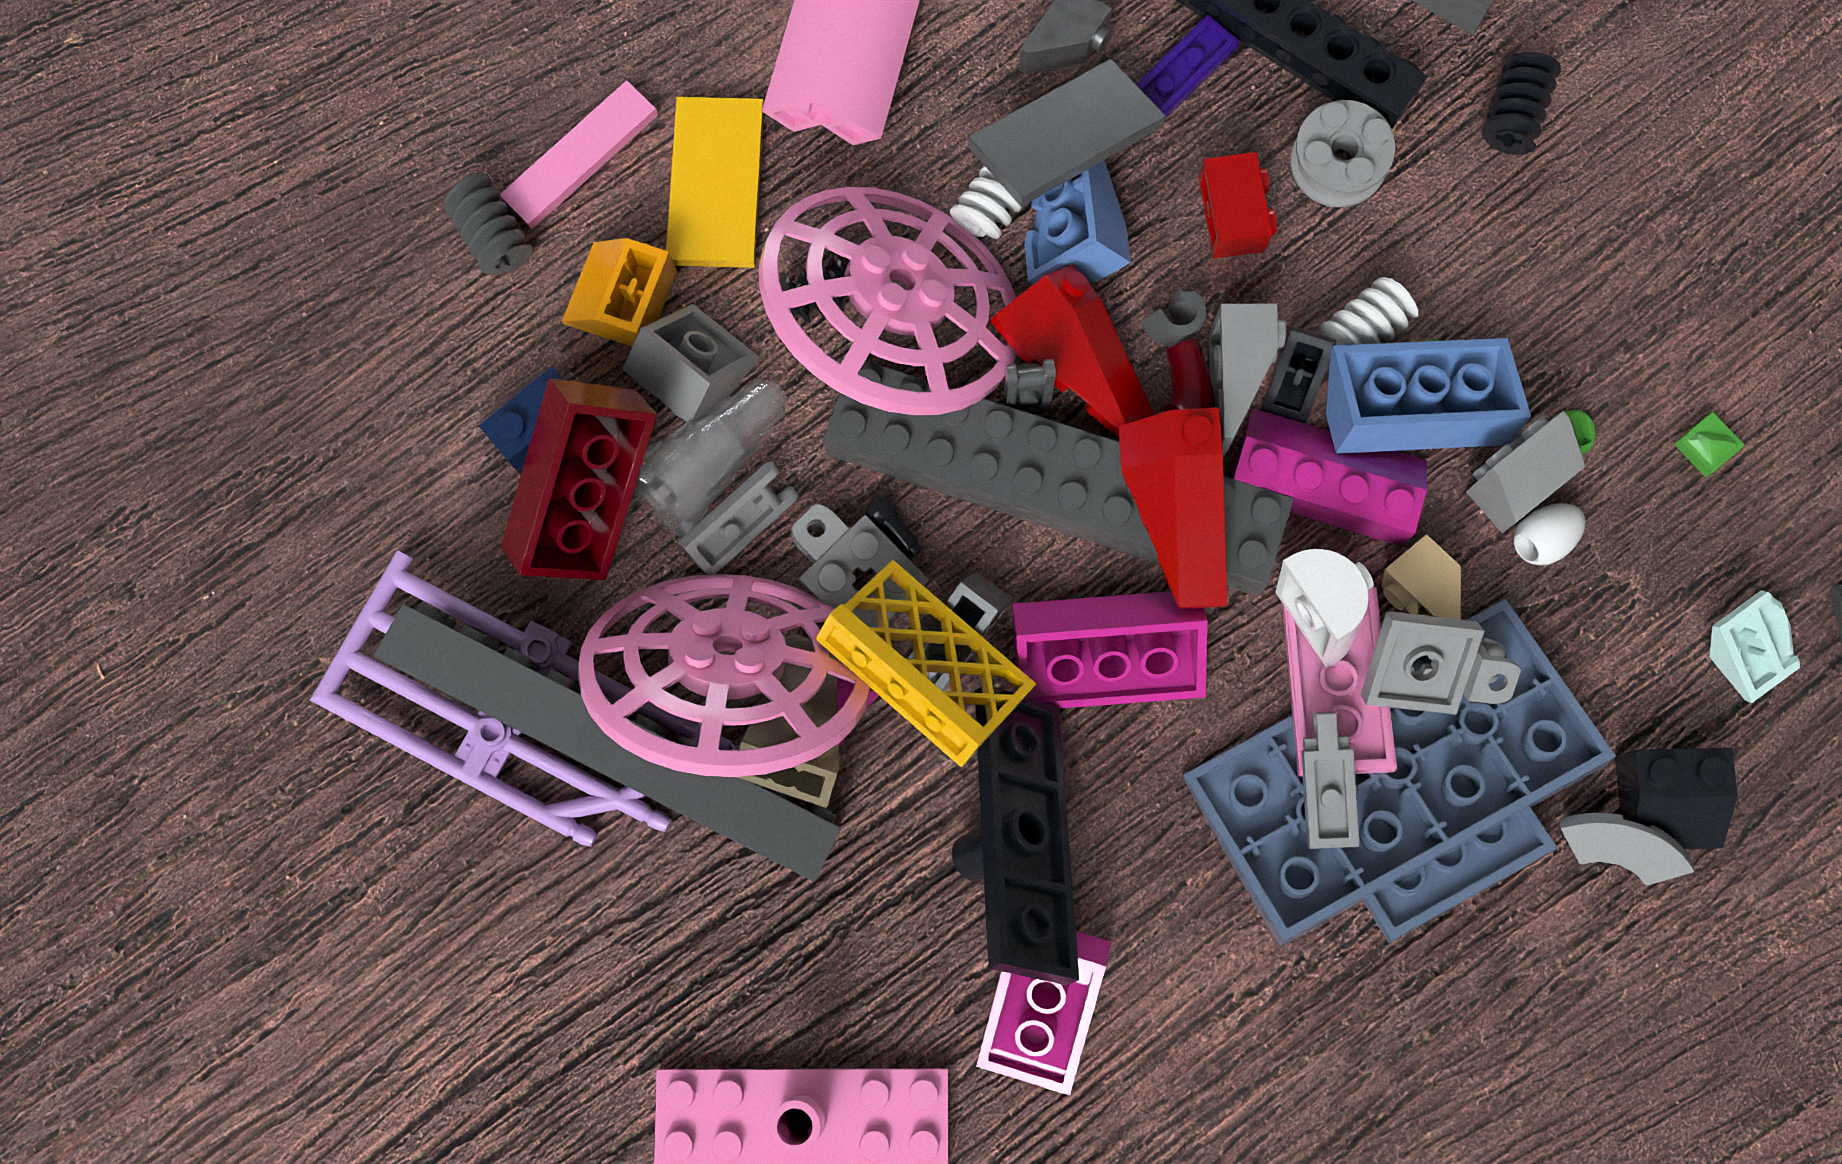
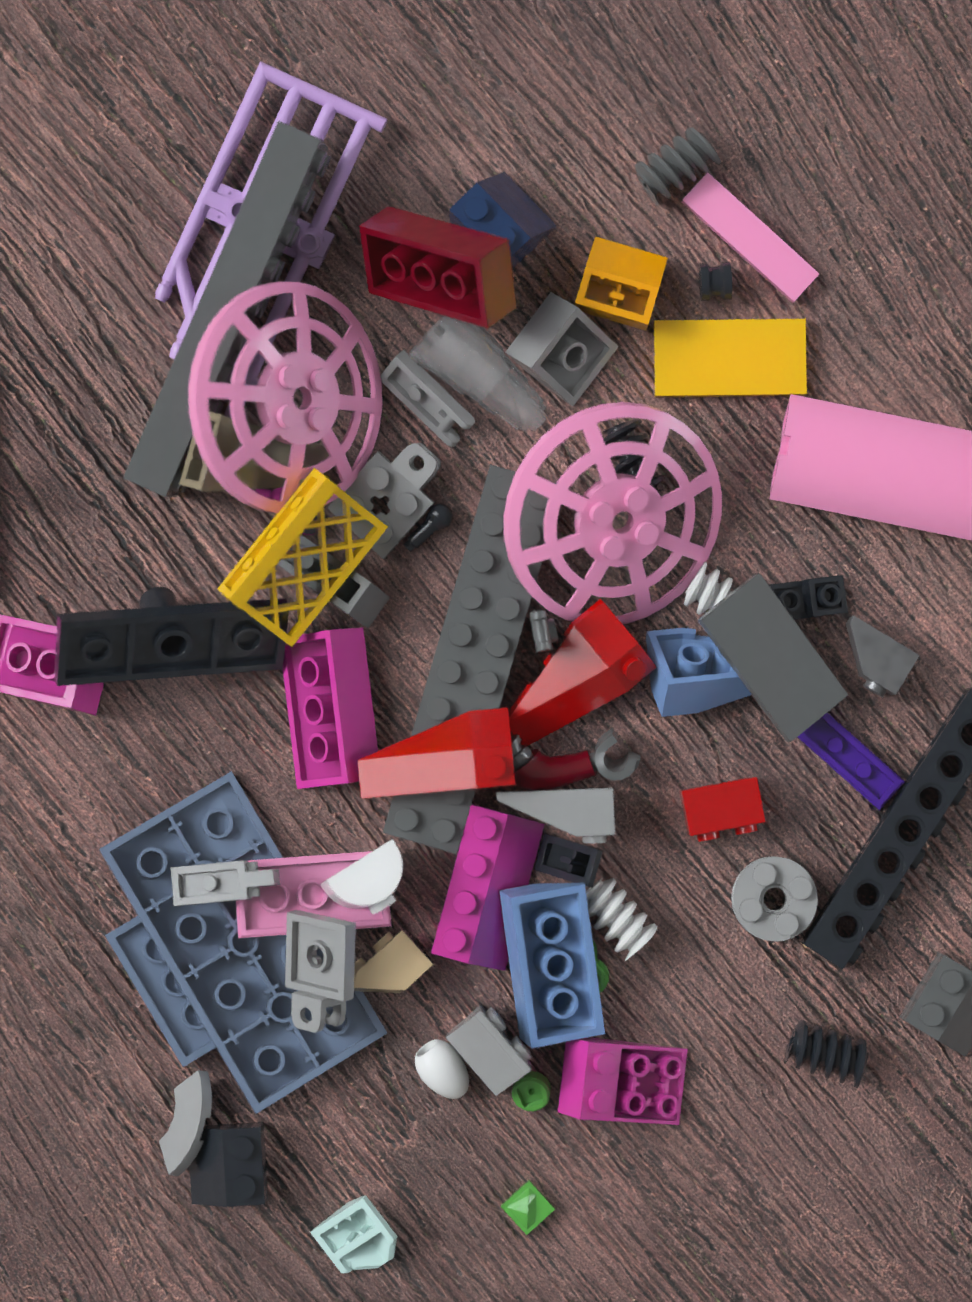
camera: 85 degrees right, 10 degrees up
(625, 189) = (715, 281): none -> black wheel
(993, 94) = (812, 597): none -> black slope
(1560, 330) = (622, 1081): none -> dark pink slope

